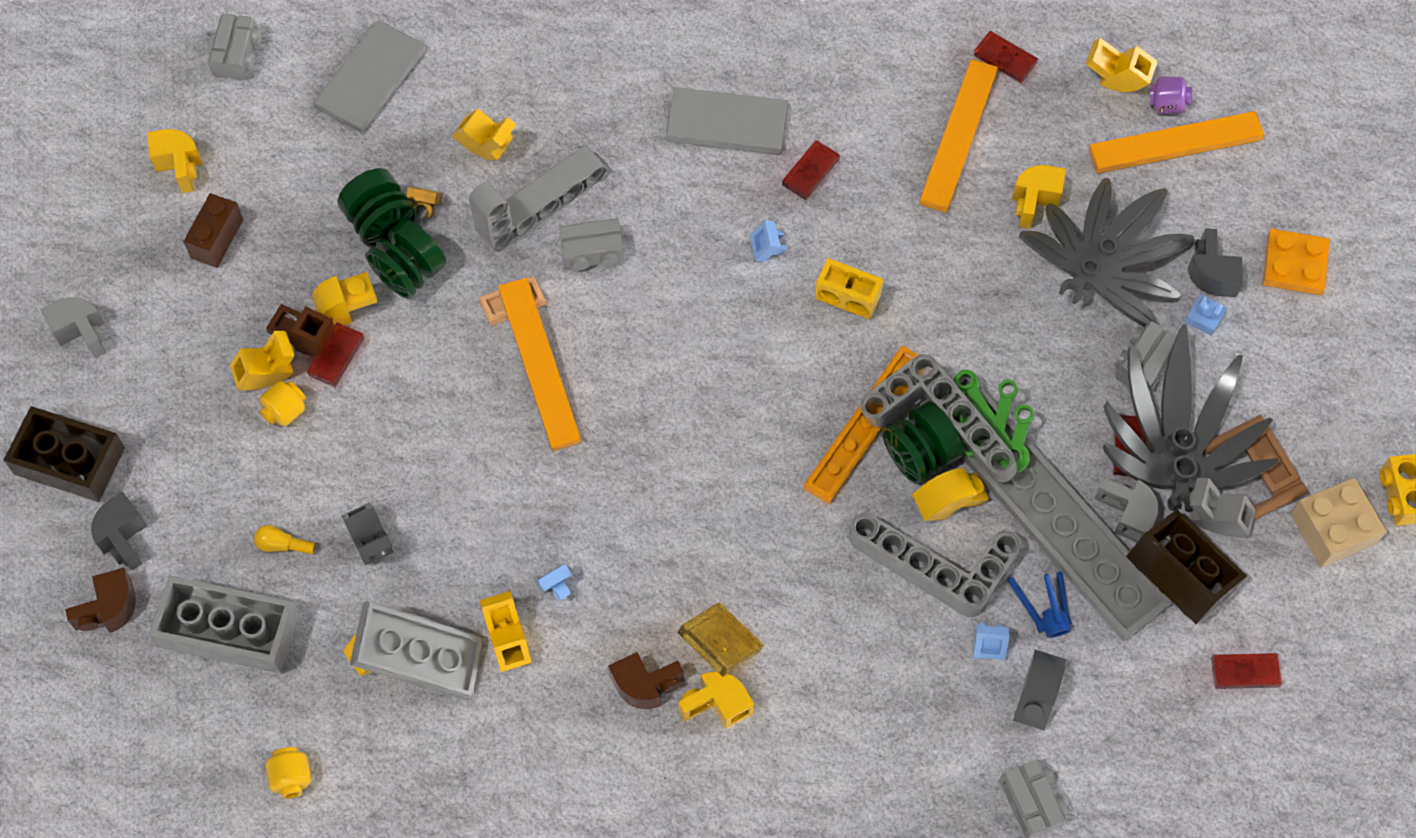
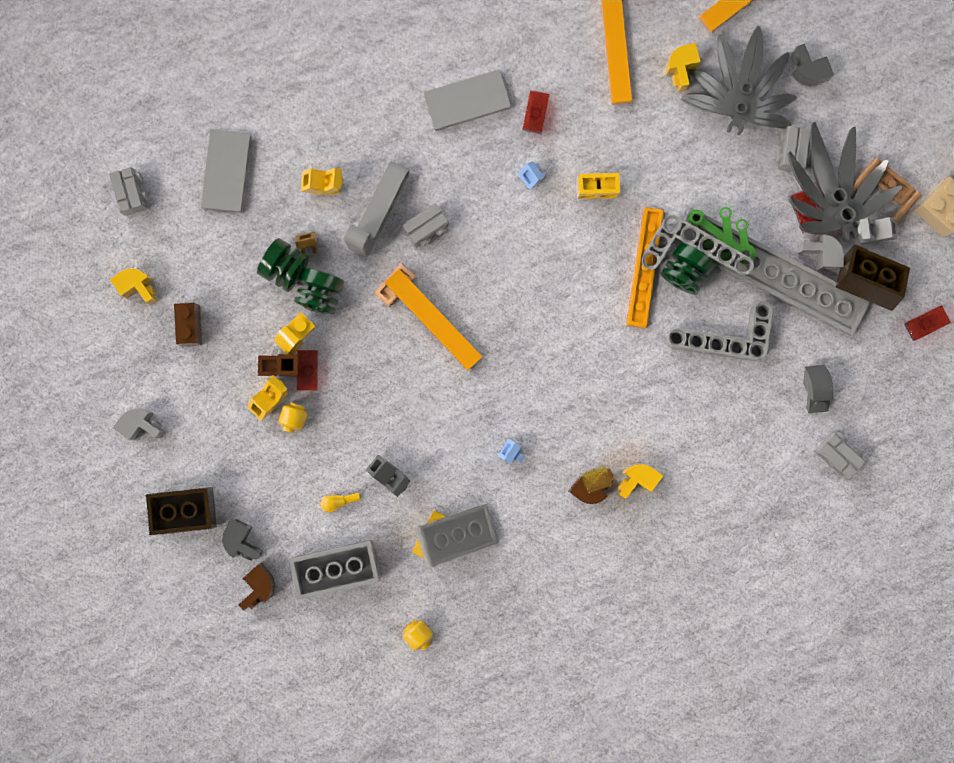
camera: 25 degrees left, 20 degrees up
(505, 631) = (500, 498): yellow brick -> none
(654, 659) = (597, 478): none -> clear yellow brick
(720, 639) = (624, 444): clear yellow tile -> none
(948, 493) = (716, 293): yellow brick -> none
(991, 641) = (778, 372): light blue tile -> none
(1055, 619) = (807, 342): blue plant -> none
(1205, 314) = (816, 102): light blue tile -> none
(1296, 261) = (856, 40): light orange plate -> none

